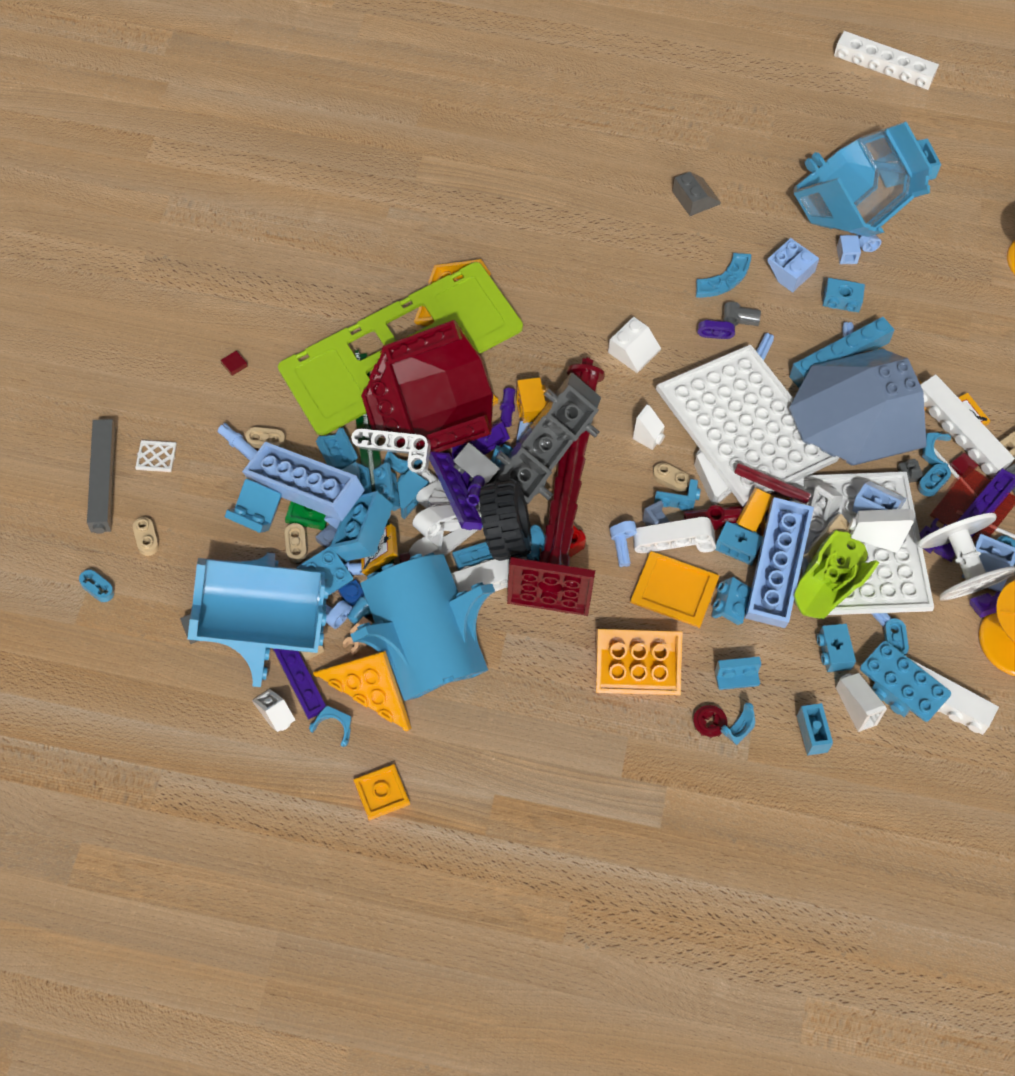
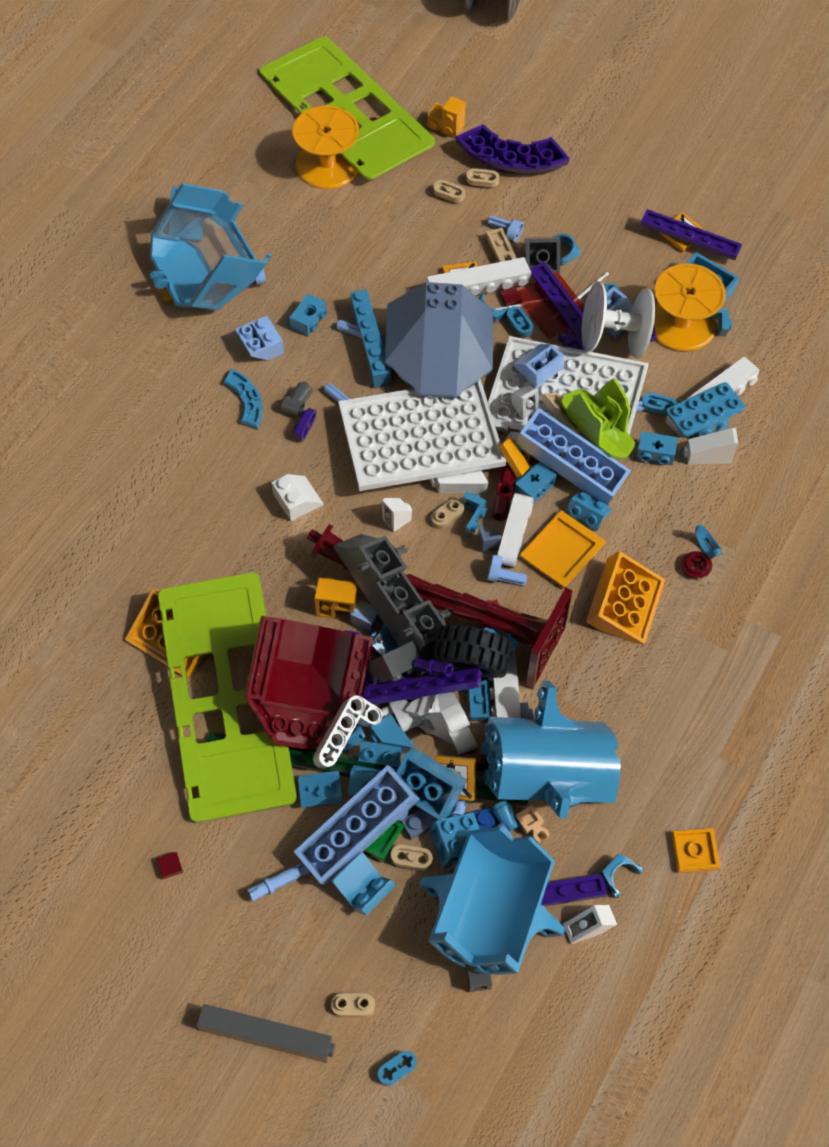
camera: 70 degrees left, 0 degrees up
(161, 462) = (263, 957): white window -> none
(264, 435) = (278, 857): tan plate -> none
(370, 684) = (589, 828): light orange tile -> none
(507, 406) = (316, 619): dark purple pin -> none
(694, 193) = (141, 389): dark grey slope -> none
(738, 673) = (661, 528): dark azure bracket -> none
(772, 483) = (495, 433): dark red axle -> none
(814, 729) = (729, 489): dark azure brick -> none
(848, 249) = (260, 293): light blue brick -> none
(882, 527) = (571, 367): white slope -> none
(886, 60) = (56, 185): white brick -> none
(913, 470) = (503, 334): dark grey tile -> none

